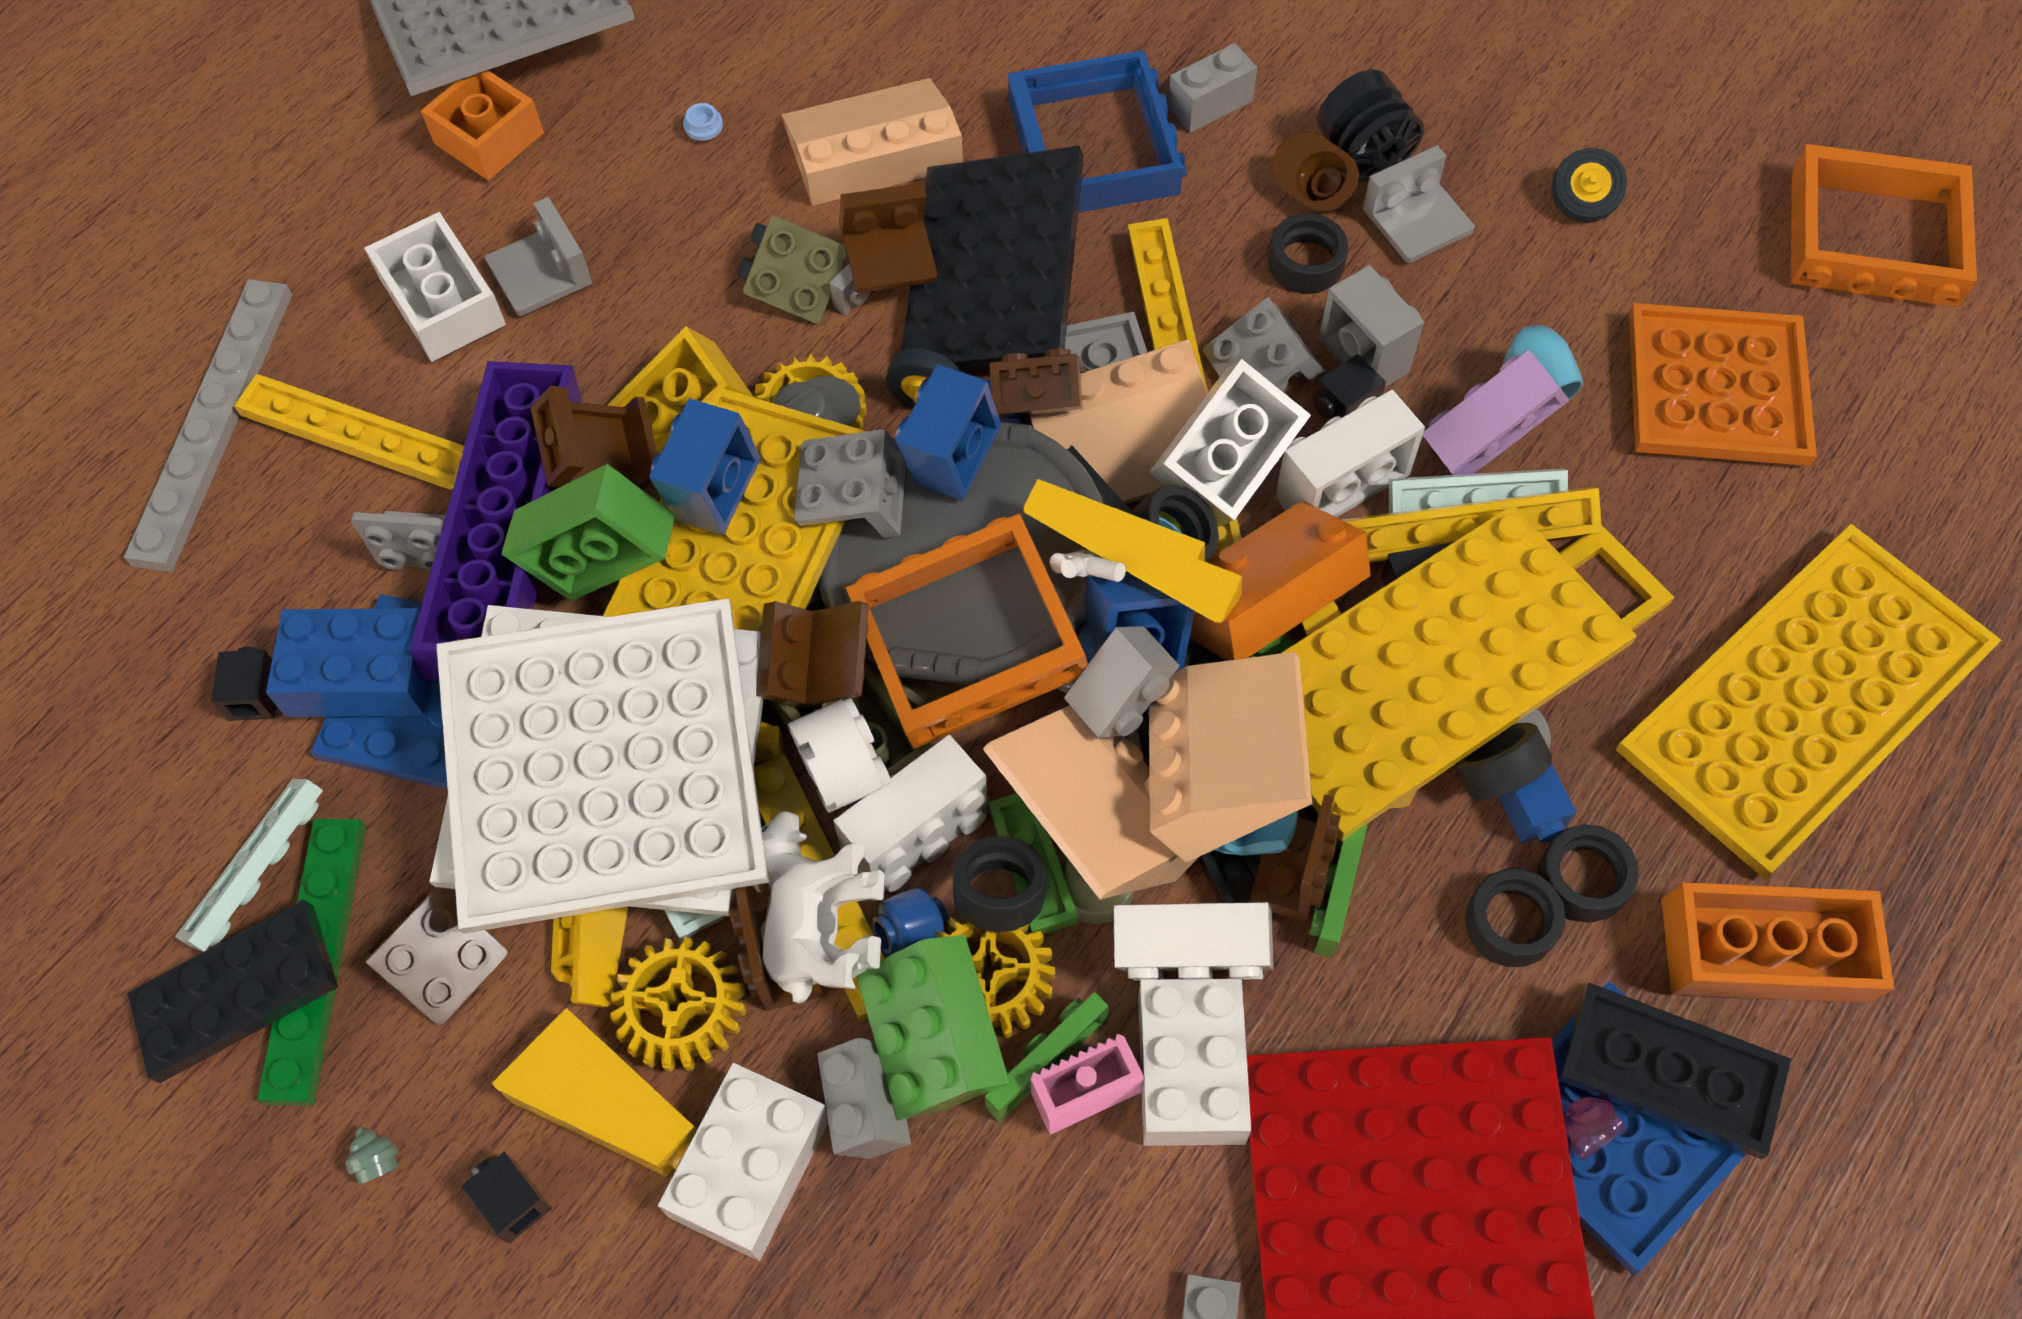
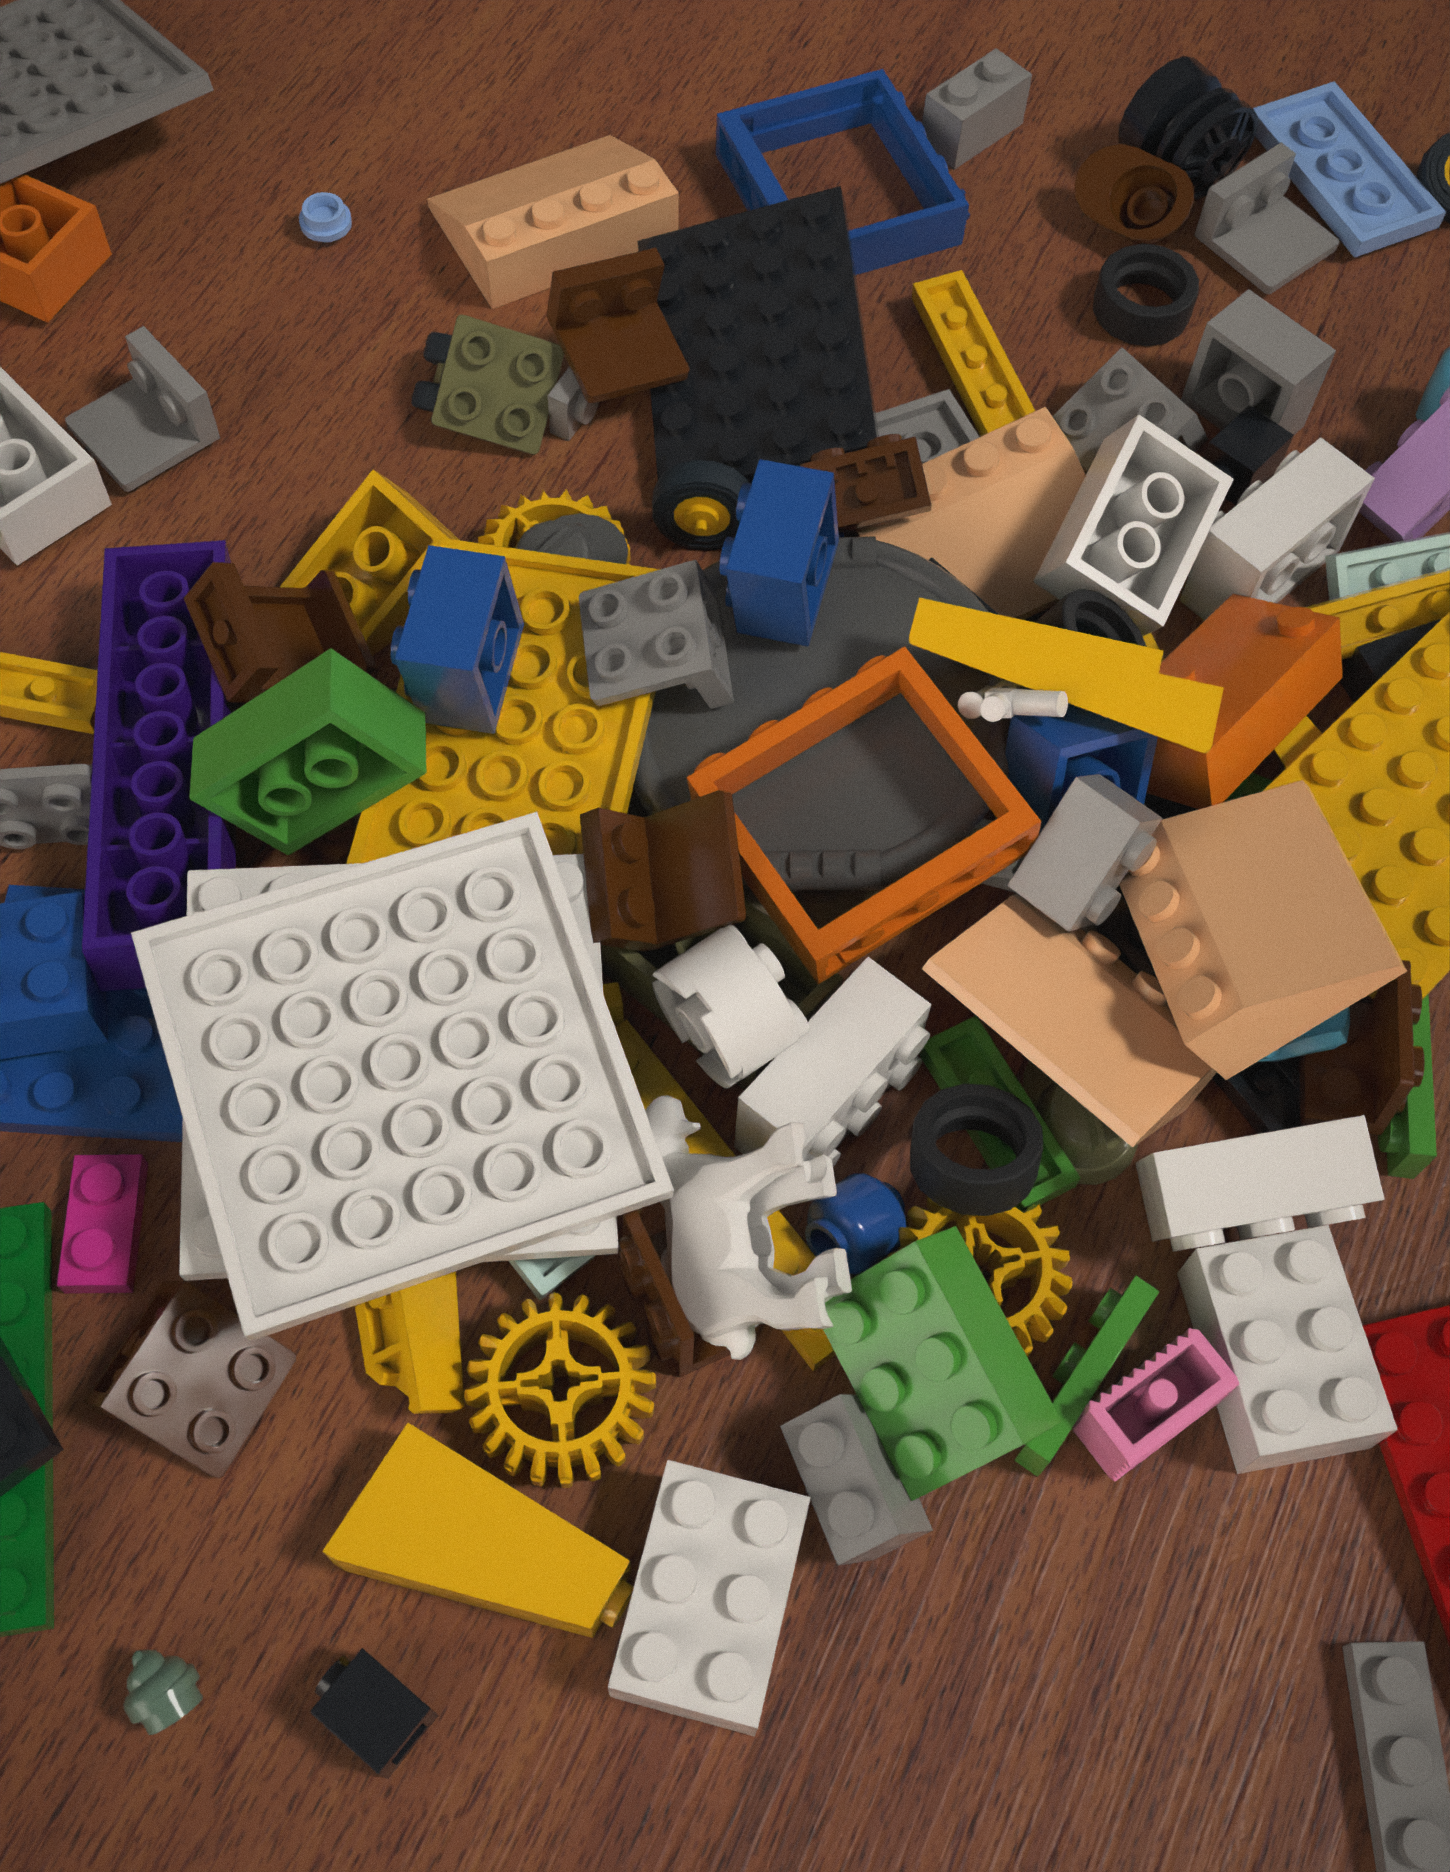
camera: 15 degrees left, 0 degrees up
(397, 840) = (103, 1224): none -> dark pink plate
(1496, 167) = (1348, 170): none -> light blue plate

